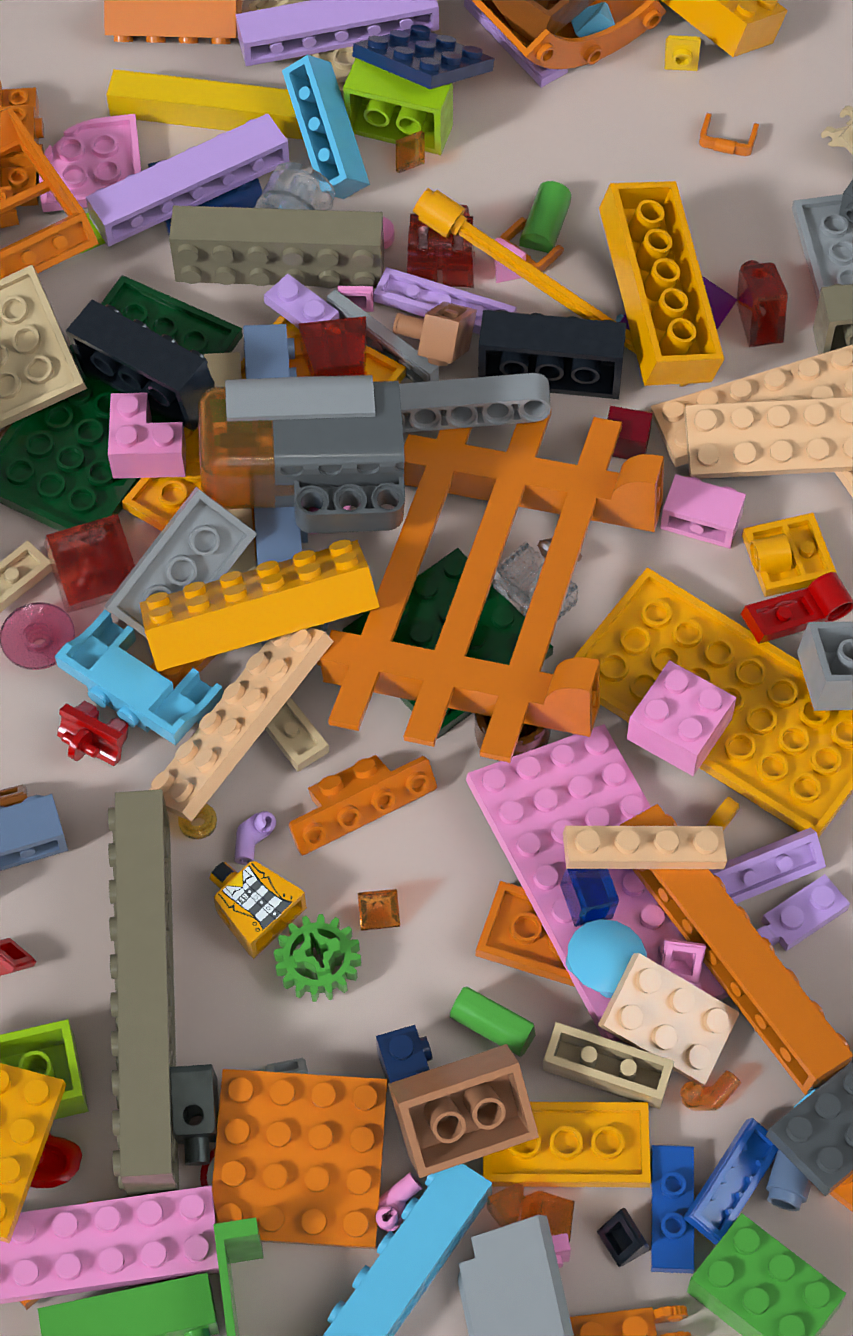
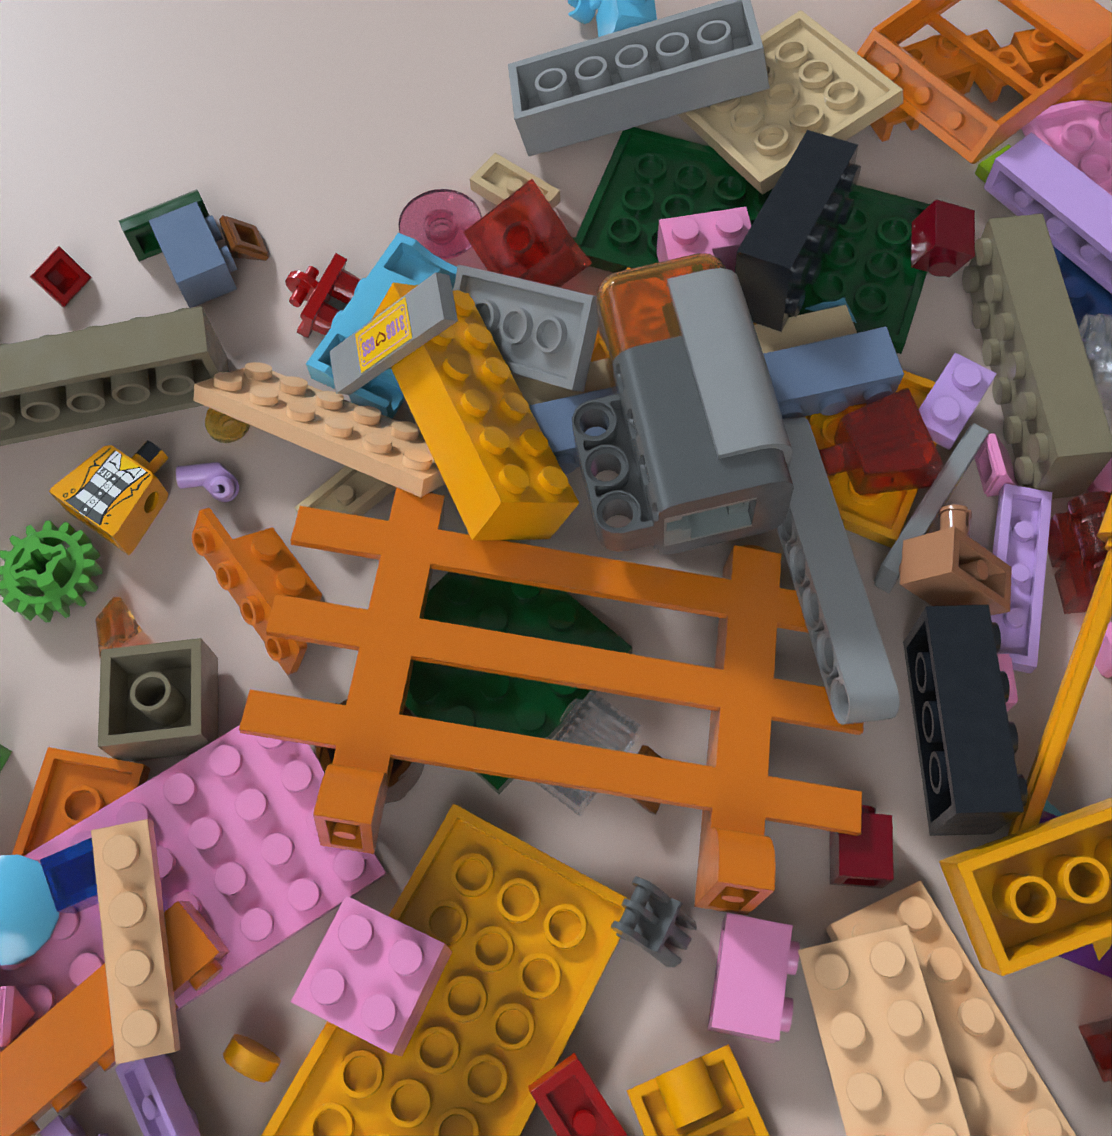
camera: 85 degrees right, 5 degrees up
(162, 279) = (943, 238): none -> dark red brick
(193, 639) = (394, 334): none -> light grey tile
(452, 862) = (157, 699): none -> dark tan brick
(662, 554) = (651, 921): none -> dark grey arm

